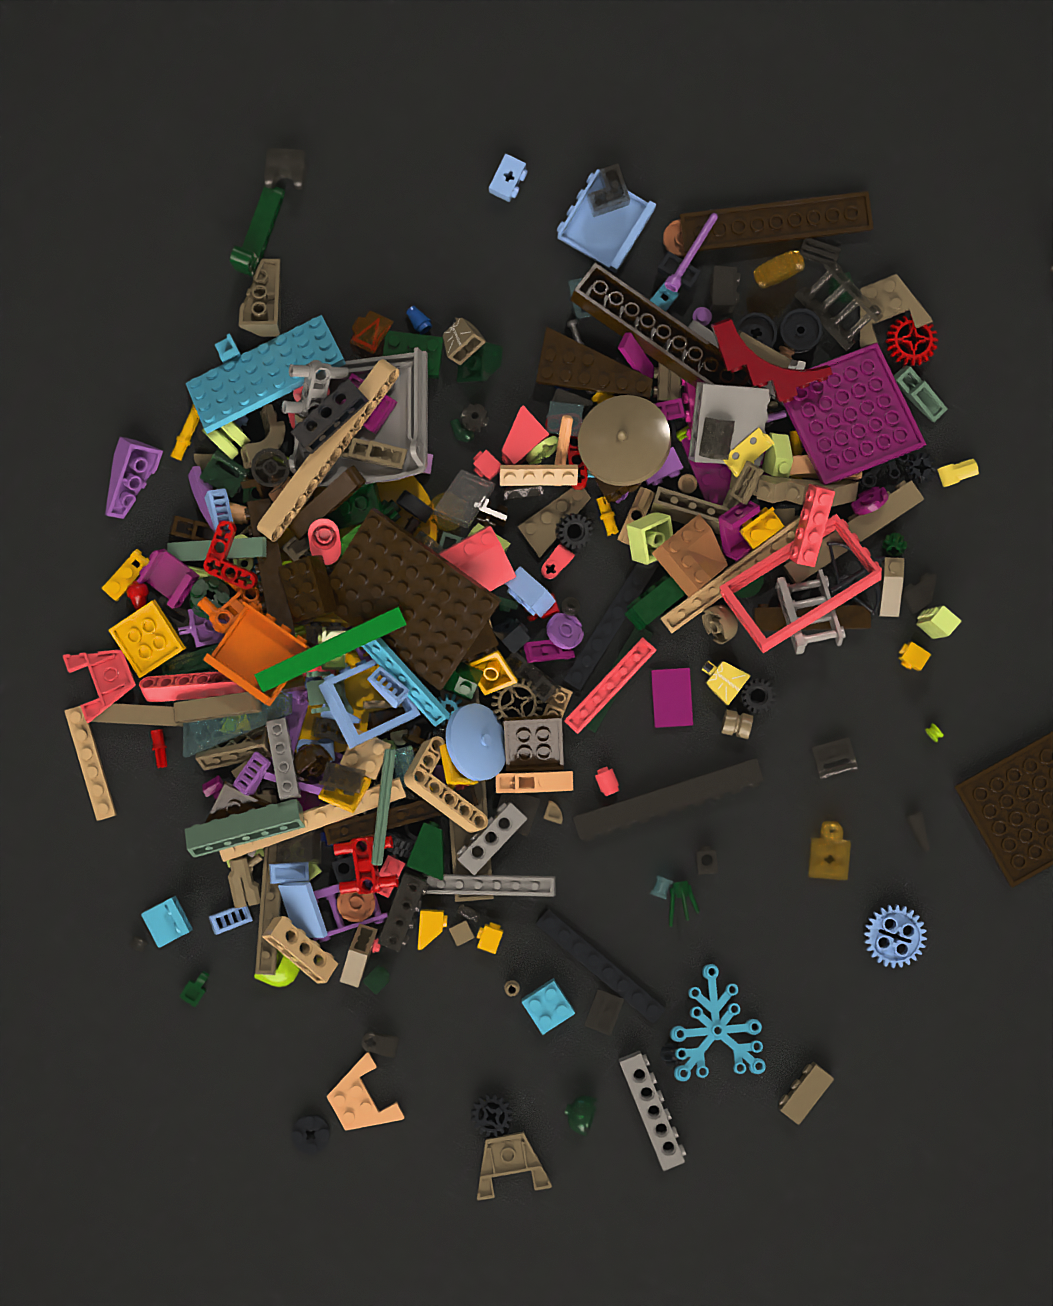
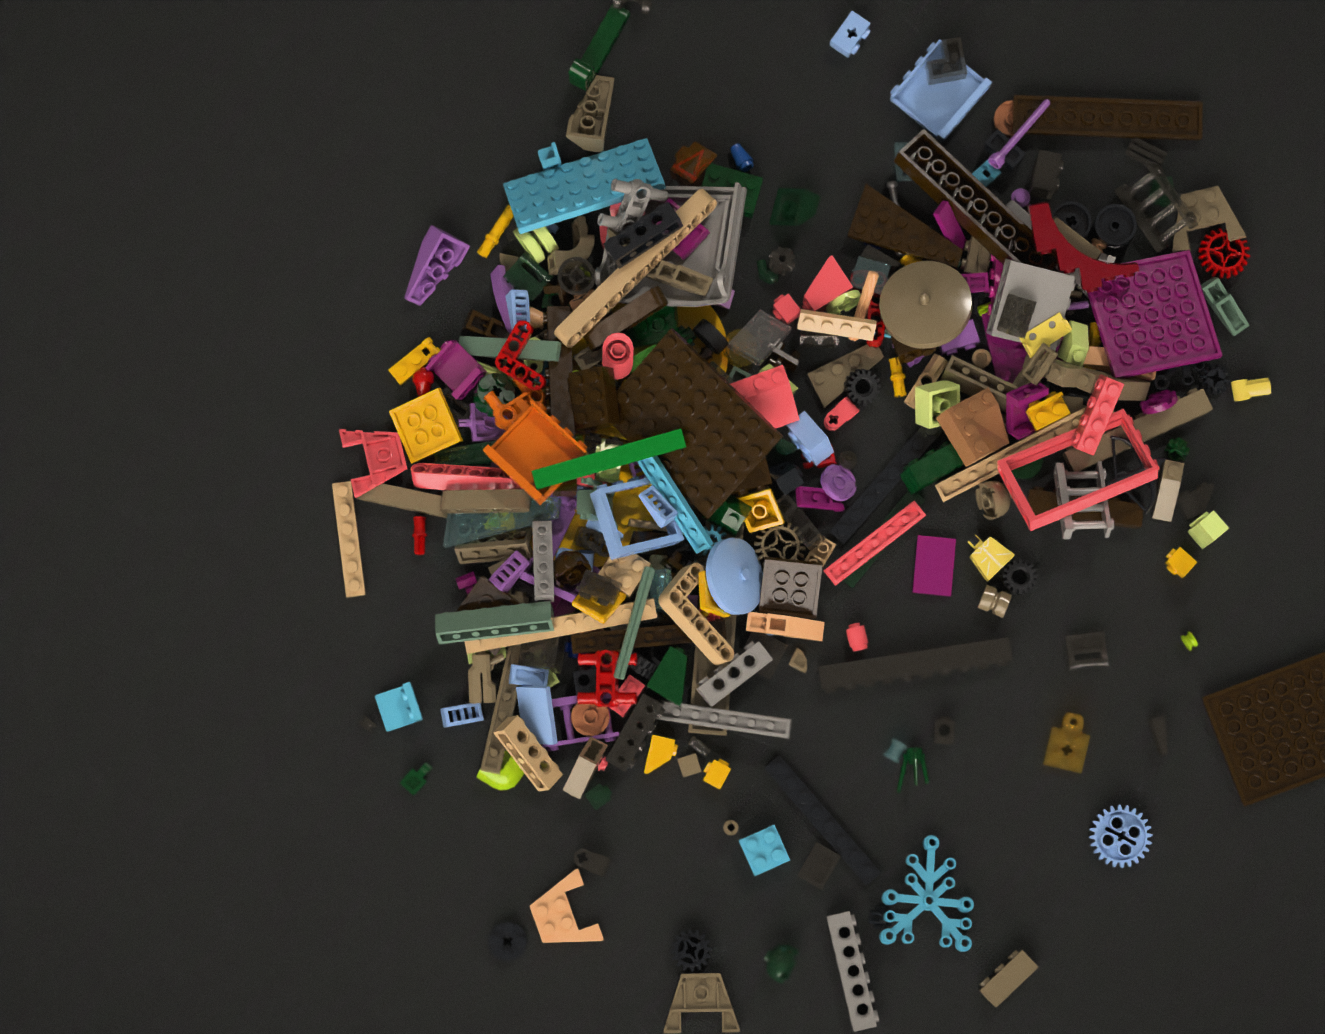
camera: 10 degrees right, 5 degrees down
(462, 340) = (781, 183): dark tan torso -> none
(779, 269) = (1103, 163): clear yellow gear -> none

